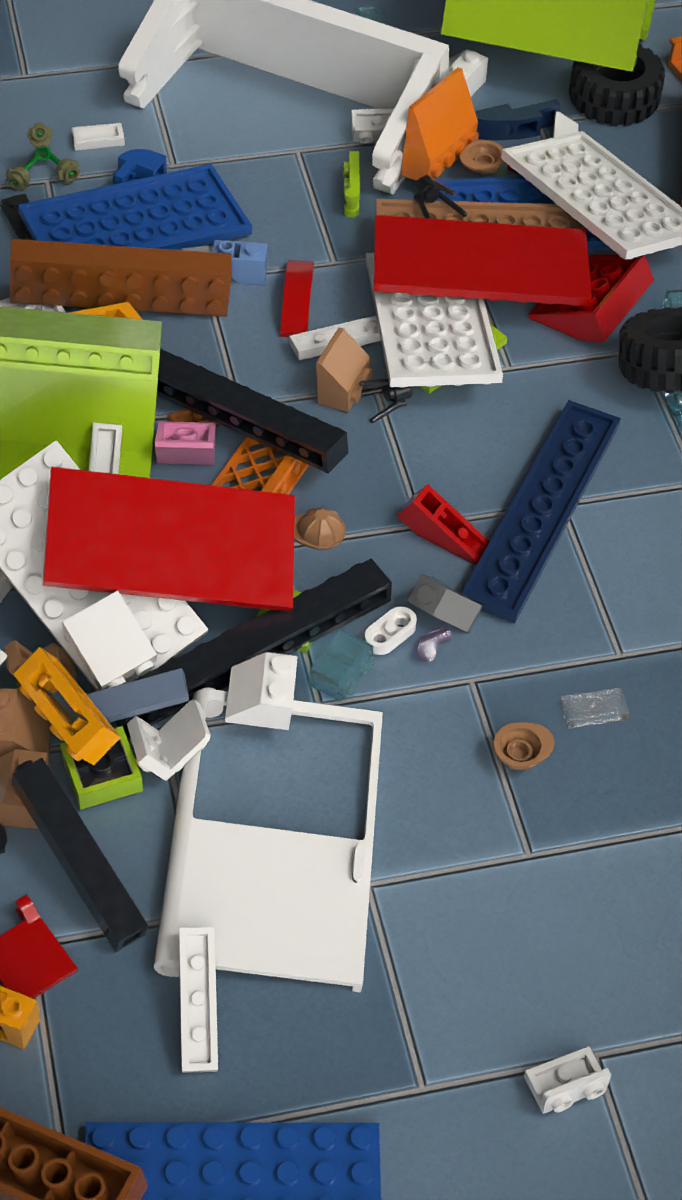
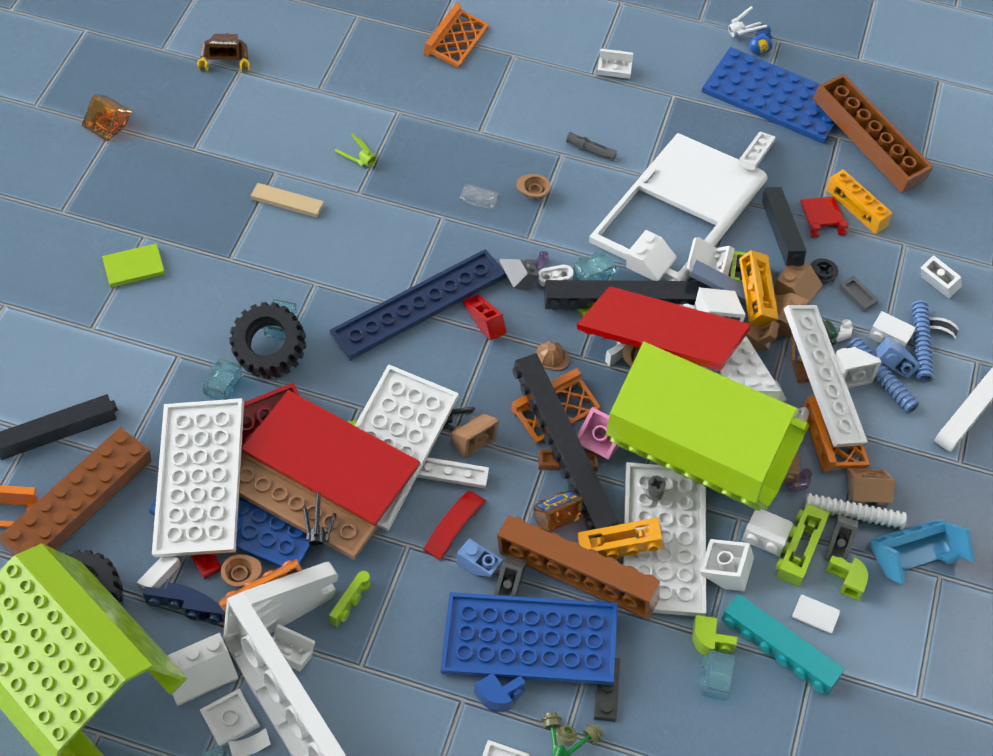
camera: 150 degrees left, 5 degrees up
(188, 331) = (558, 510): none -> clear orange slope
(497, 881) = (586, 144): none -> dark grey pin

